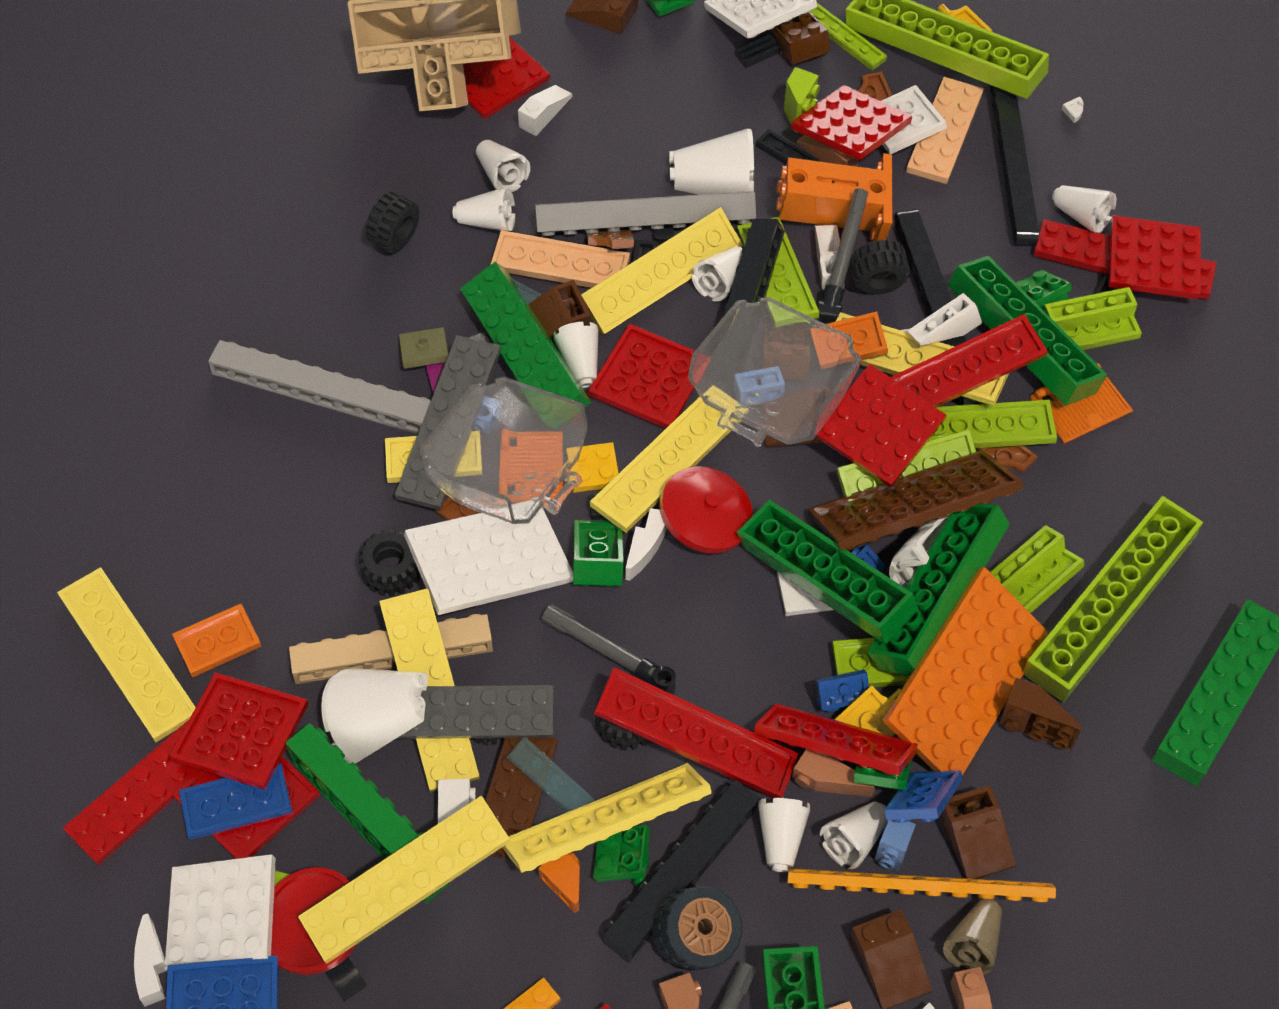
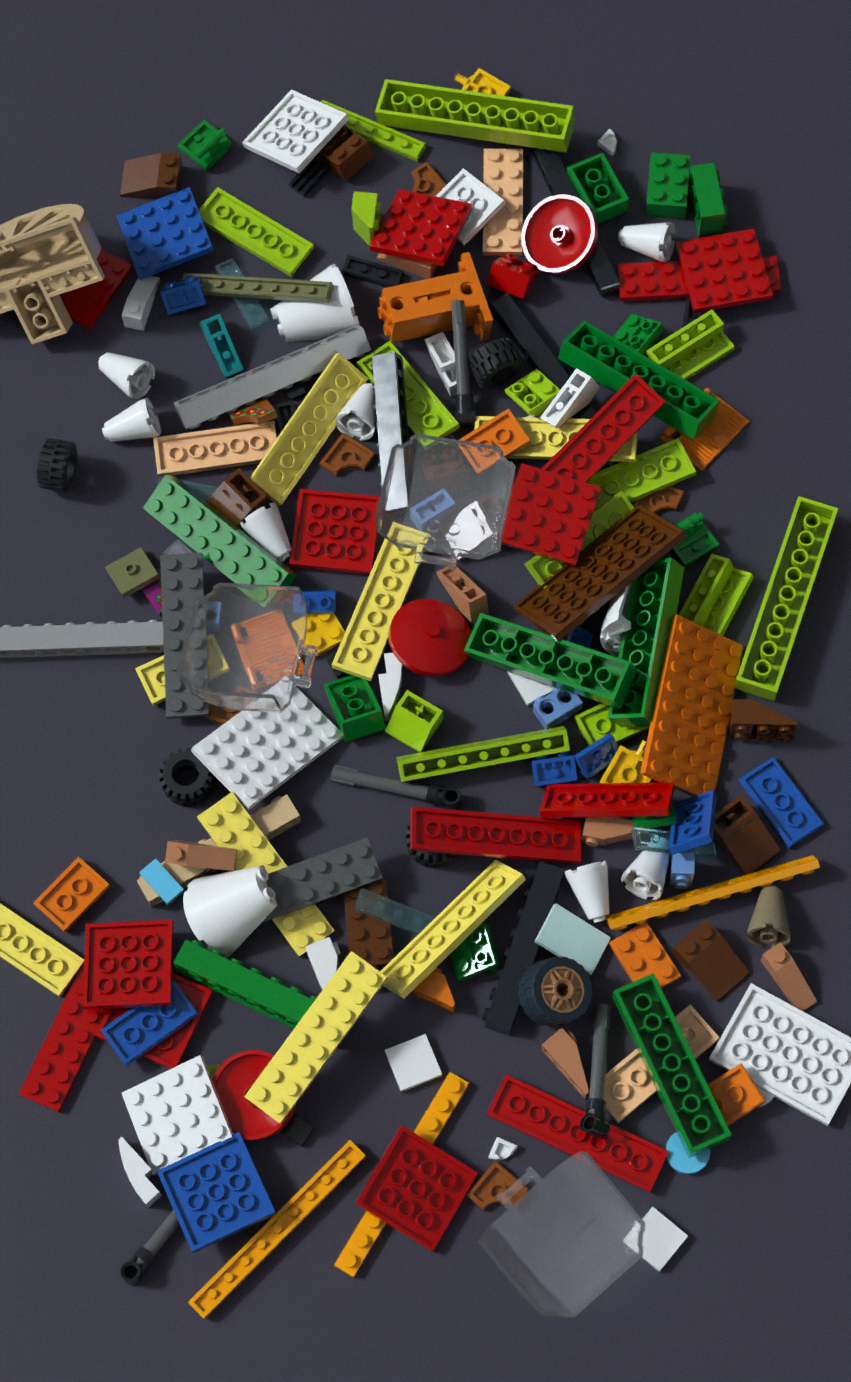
camera: 15 degrees left, 10 degrees up
(313, 657) = (161, 881): none -> medium azure tile
(365, 642) = (200, 855): none -> nougat slope
(507, 953) = (413, 1063): none -> white tile
(587, 114) = (183, 294): none -> blue bracket
(593, 55) = (164, 233): none -> blue plate
(604, 435) = (320, 600): none -> blue bracket
(606, 167) = (221, 345): none -> teal slope
(647, 132) = (249, 307): none -> clear light blue tile
(655, 587) = (414, 721): none -> lime slope
(664, 126) = (264, 288): none -> olive tile
(683, 81) = (255, 232): none -> lime plate
(691, 309) = (347, 454): none -> dark orange tile
(716, 645) = (483, 753): none -> lime brick
(741, 876) = (572, 938): none -> light aqua tile
(760, 477) = (464, 592): none -> nougat slope
(789, 689) = (554, 768): none -> blue bracket
(815, 921) = (643, 955): none -> orange plate
(819, 630) = (561, 710): none -> medium blue brick
(875, 802) = (658, 841): none -> clear light blue tile
(908, 306) = (533, 393): none -> lime slope
(929, 196) = (513, 275): none -> red slope
(992, 170) = (559, 234): none -> red dish
(1029, 506) = (698, 540): none -> green plate
(1034, 814) = (781, 802): none -> blue tile
(1048, 144) = (598, 187): none -> green brick
(1122, 162) = (668, 185): none -> green brick
(1160, 184) = (707, 199): none -> green brick

